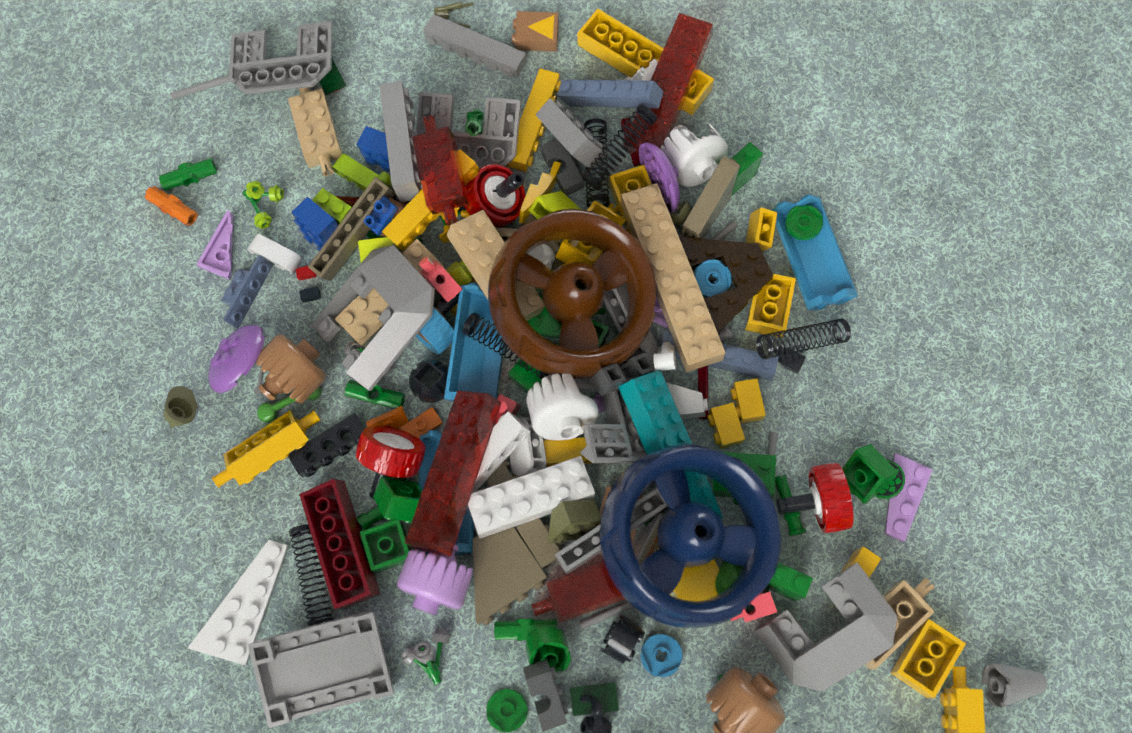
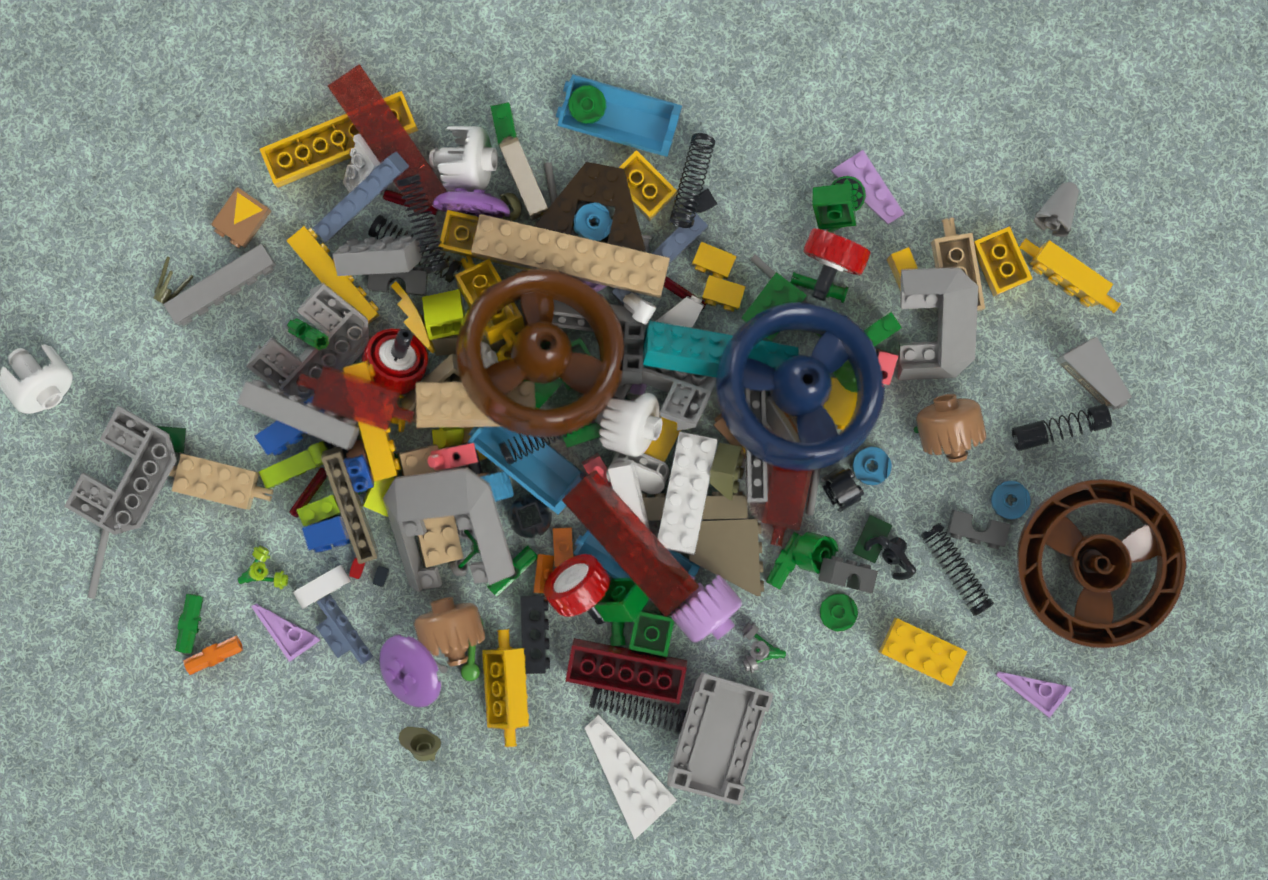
camera: 60 degrees left, 15 degrees up
(761, 228) = (571, 147): yellow brick -> none

